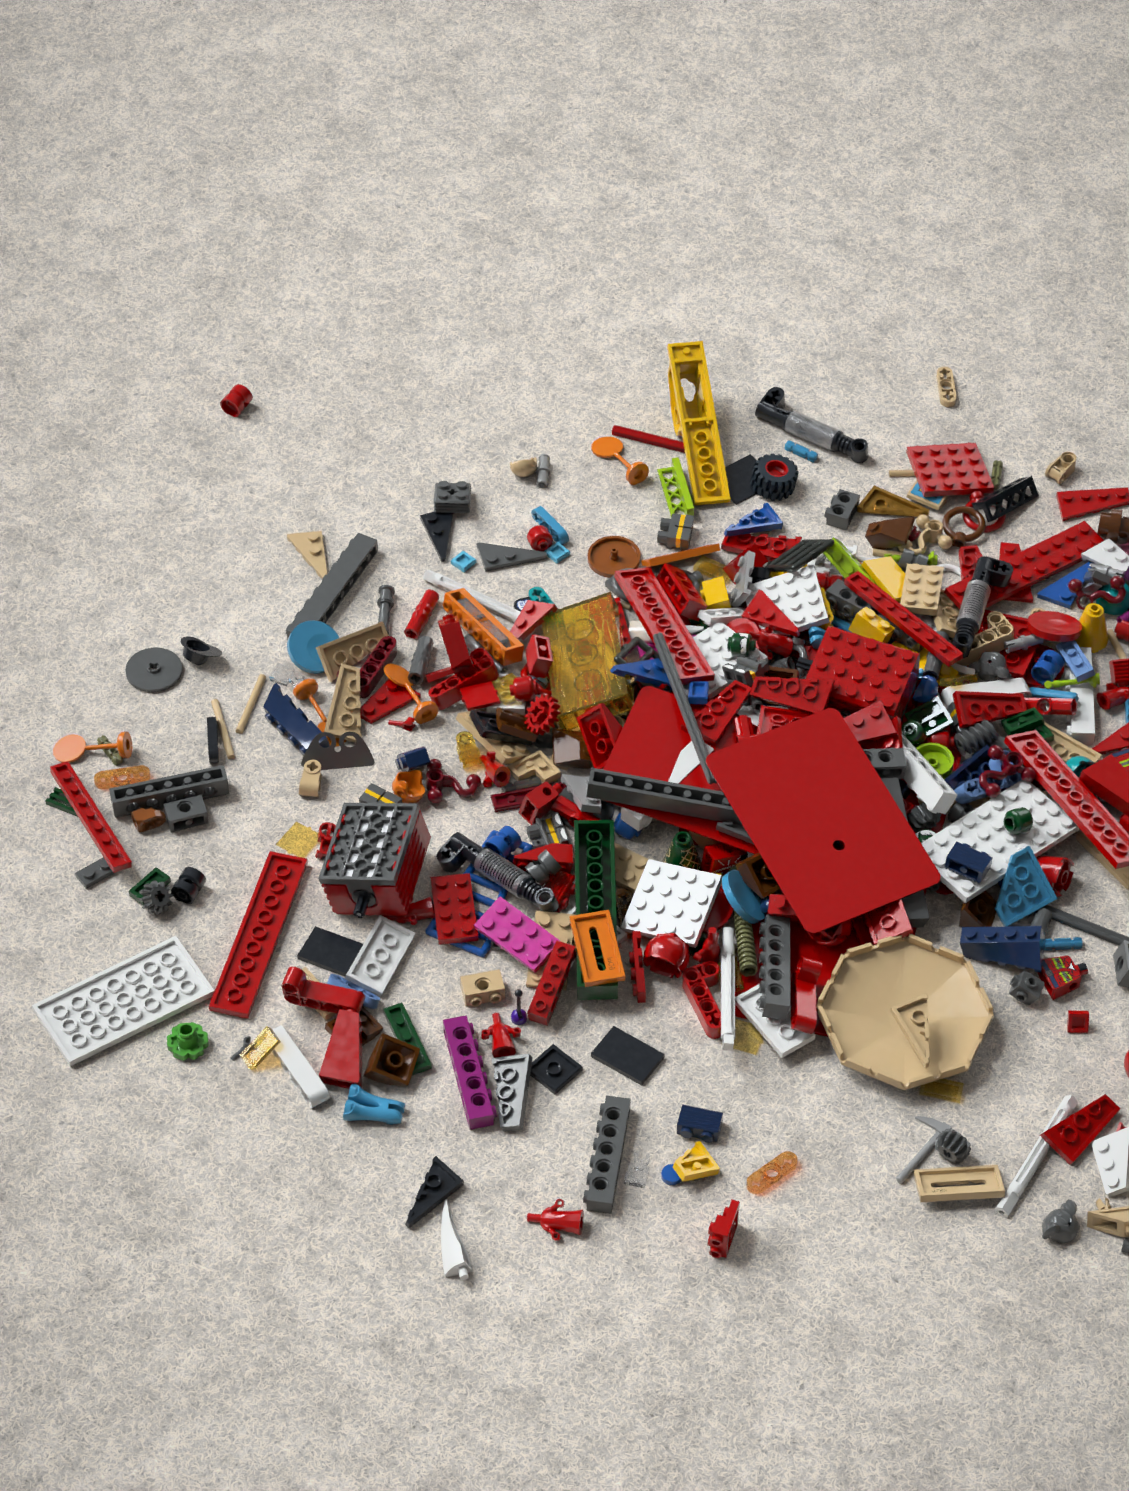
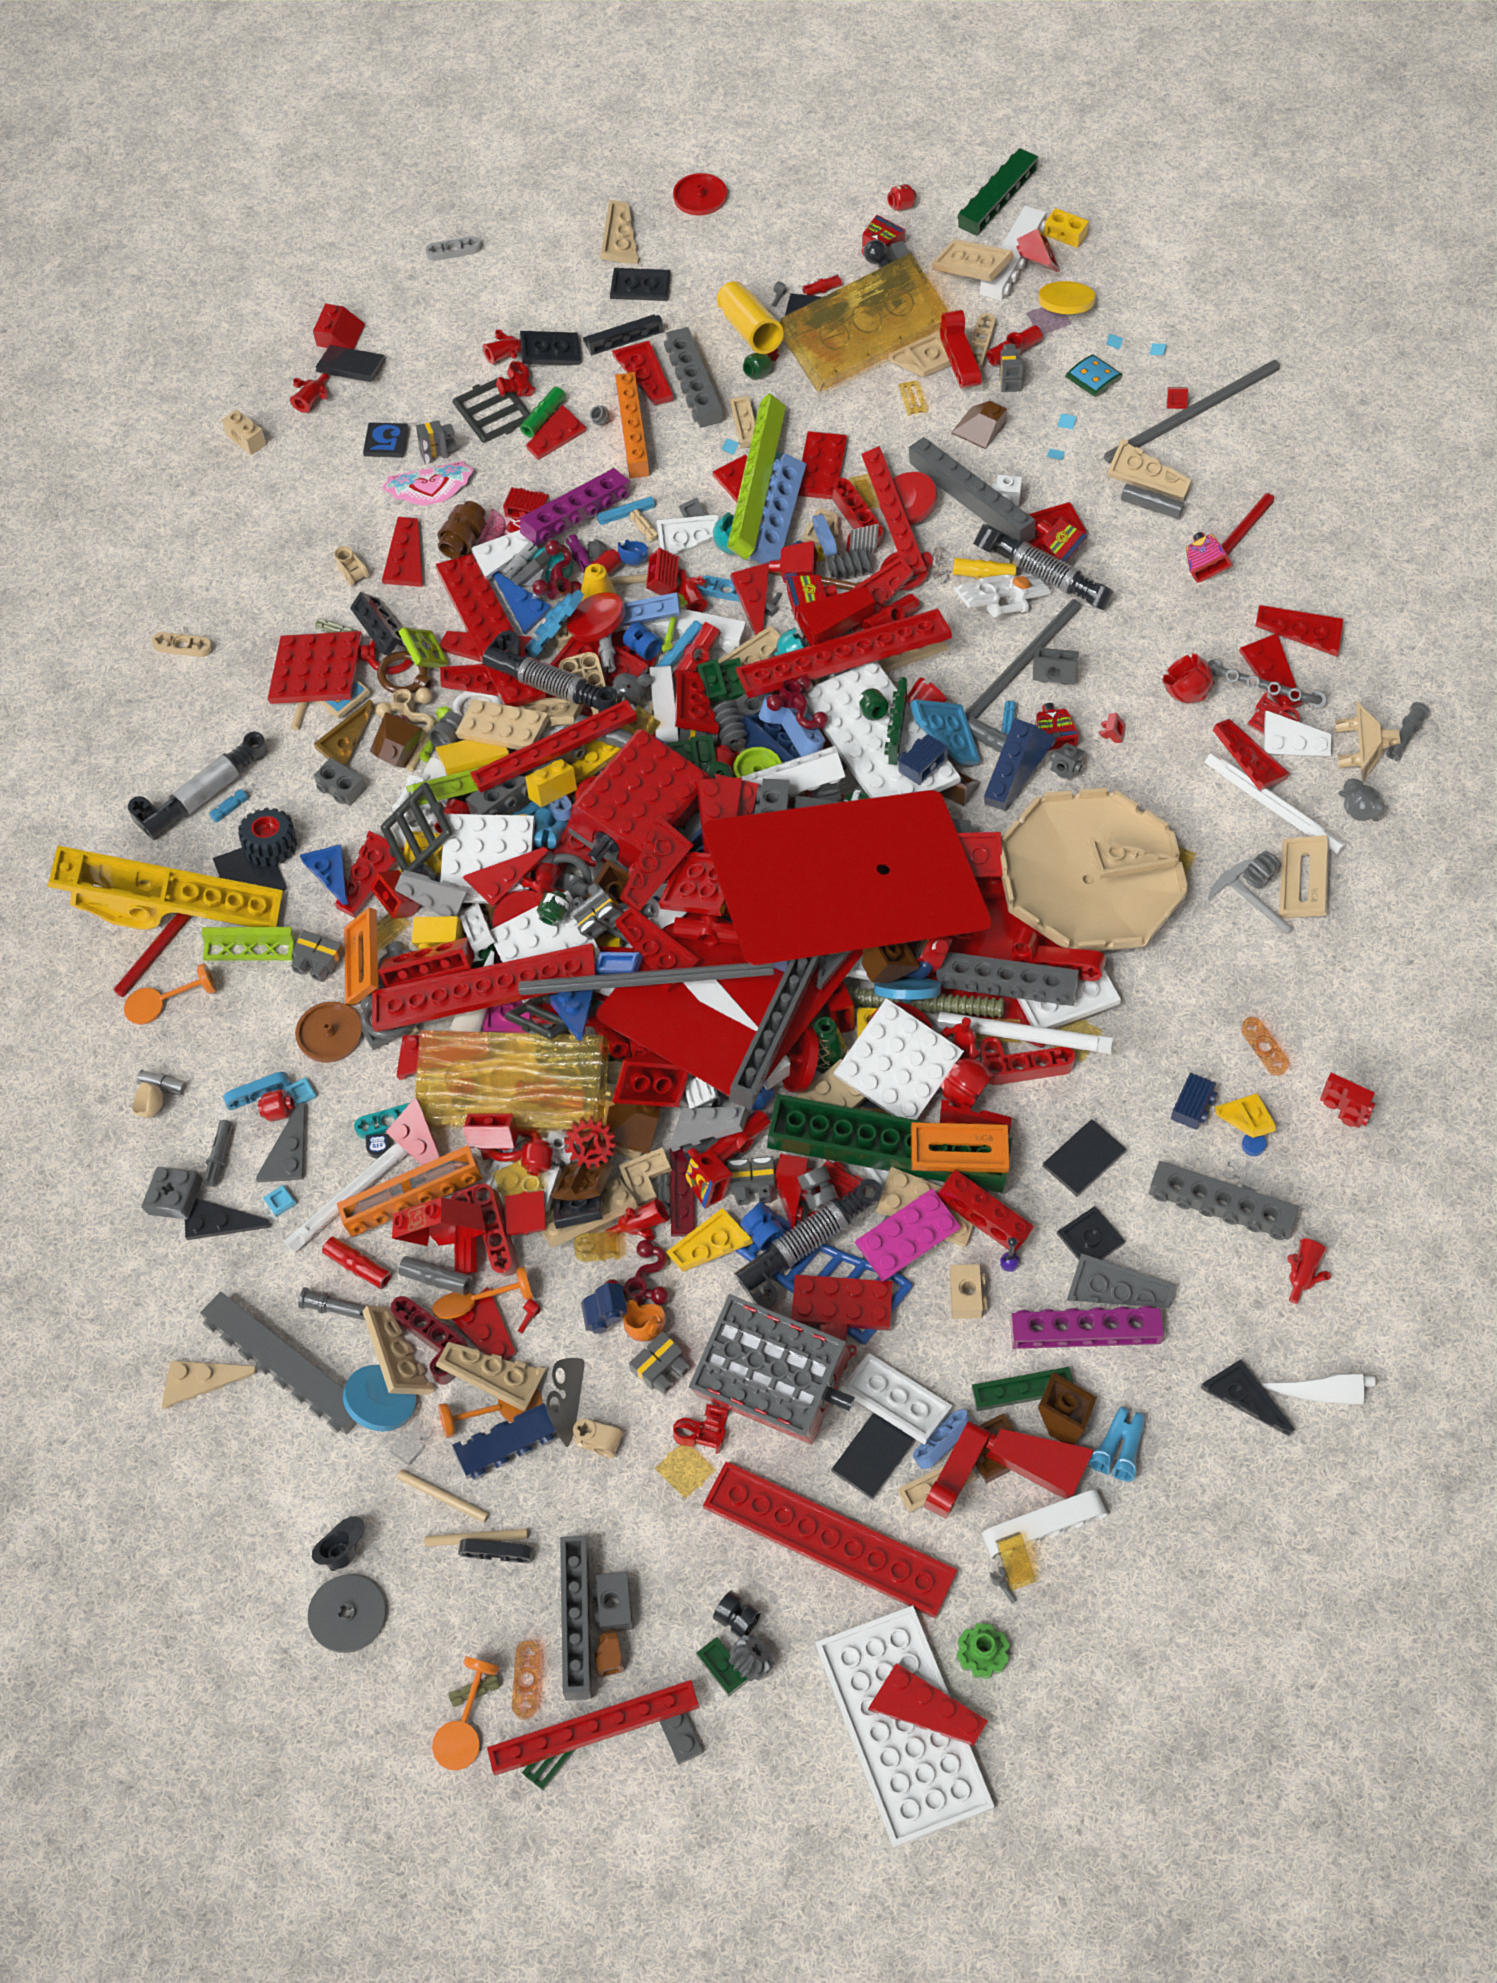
camera: 75 degrees left, 10 degrees up
(136, 1006) = (921, 1704): none -> red wing
(486, 816) = (709, 1241): none -> yellow wing
(494, 516) = (217, 1154): none -> dark grey axle
(501, 1040) = (1039, 1285): red piece -> none
(654, 839) = (803, 1062): none -> red piece
(988, 528) = (423, 647): none -> lime piece
(1004, 839) = (897, 715): none -> dark green hinge
(1056, 603) = (553, 622): none -> dark azure plate

